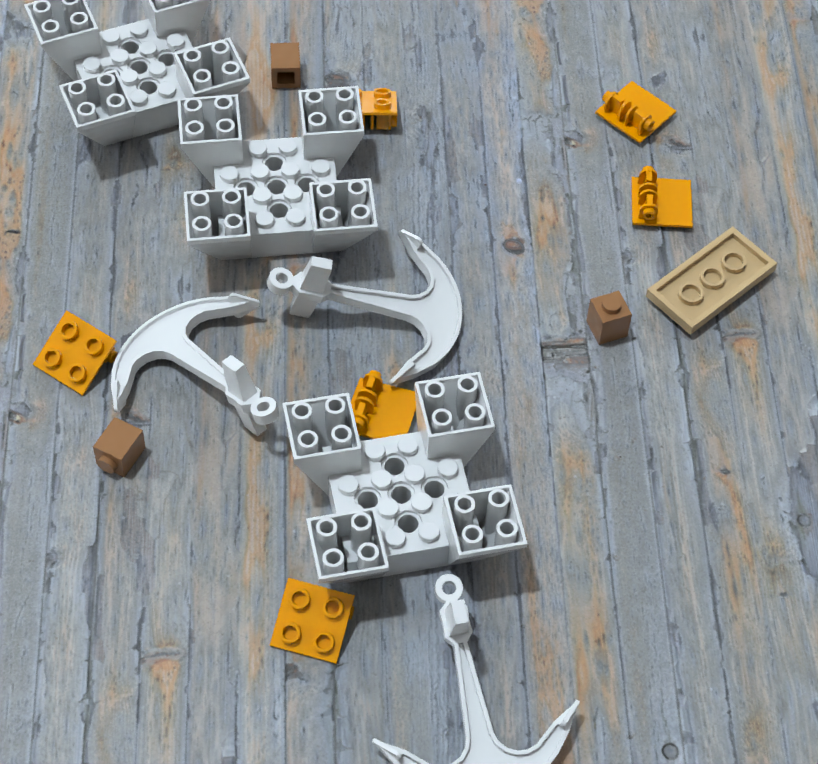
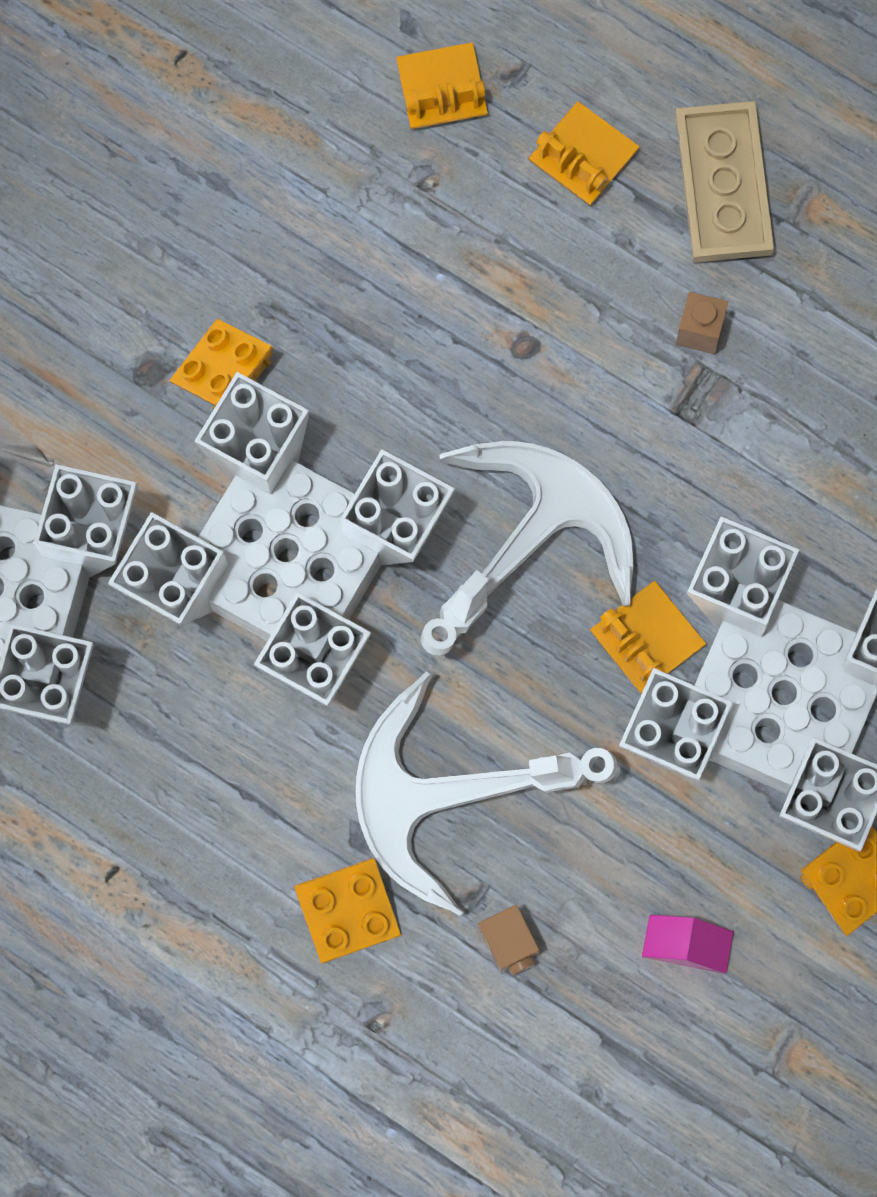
camera: 45 degrees left, 20 degrees up
(194, 554) = (687, 943): none -> dark pink slope
(285, 65) = (95, 416): medium nougat brick -> none

